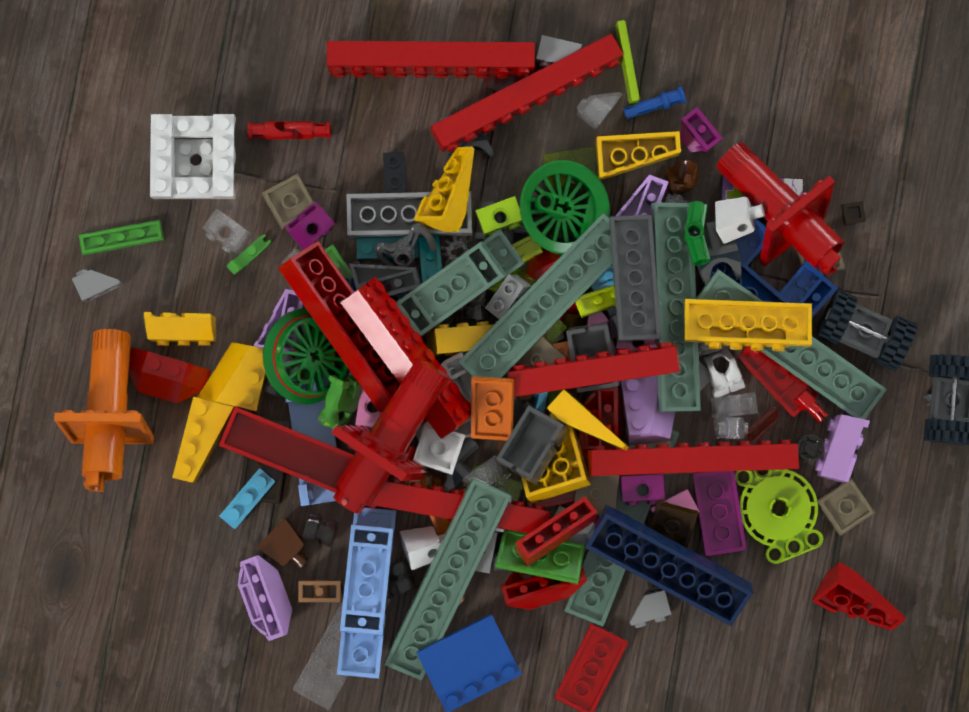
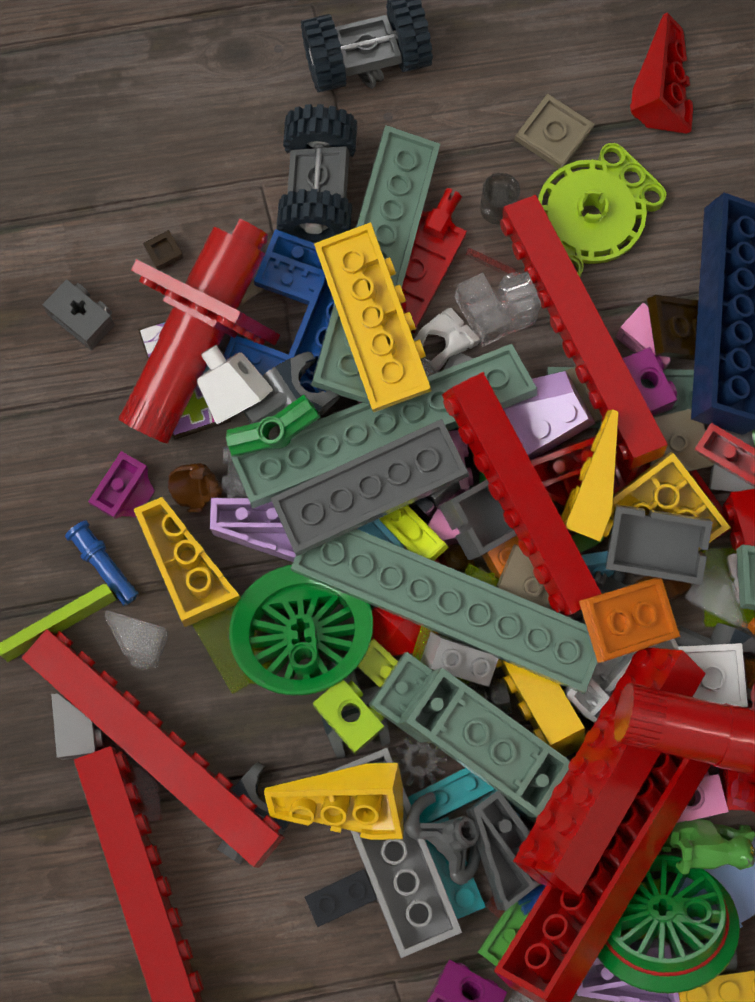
camera: 110 degrees left, 10 degrees down
(719, 512) = (634, 275): magenta plate -> none
(836, 135) = (86, 328): none -> dark grey brick
(840, 446) = (477, 151): lavender wedge -> none

